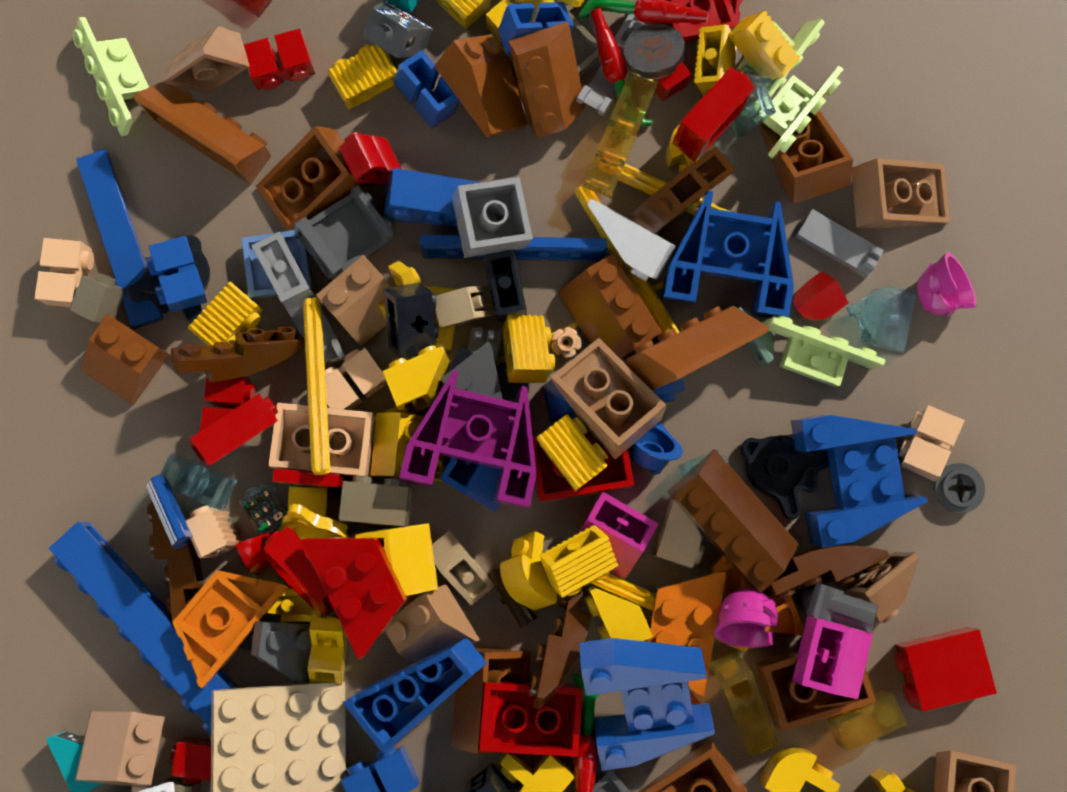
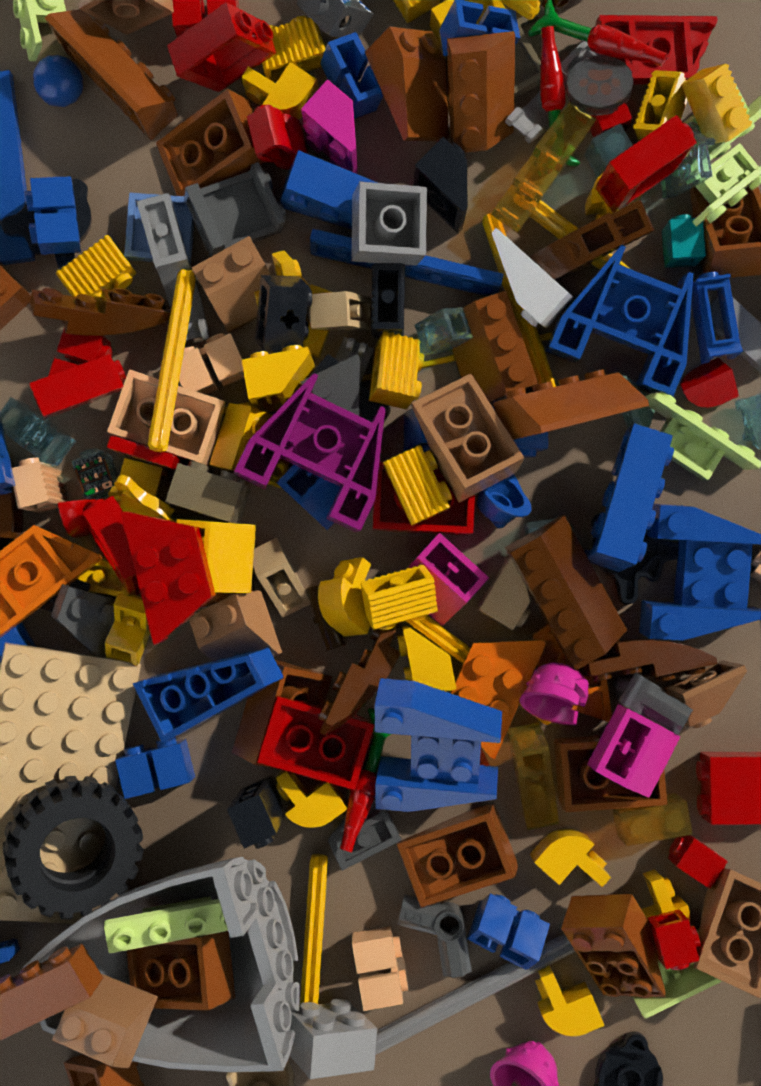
camera: 20 degrees right, 5 degrees up
(152, 149) = (57, 81): none -> blue hair
(302, 90) = (195, 49): none -> red window
(372, 118) = (287, 94): none -> yellow brick
(418, 139) = (331, 126): none -> dark pink slope
(534, 163) = (445, 176): none -> black slope
(563, 302) = (443, 331): none -> clear light blue brick
(565, 350) = (443, 366): light nougat plate -> none
(675, 105) = (606, 148): none -> clear light blue brick
(763, 174) = (682, 242): none -> teal brick
(772, 421) = (631, 498): none -> blue wedge
(810, 265) = (703, 321): none -> blue window
(917, 749) = (696, 859): none -> red brick

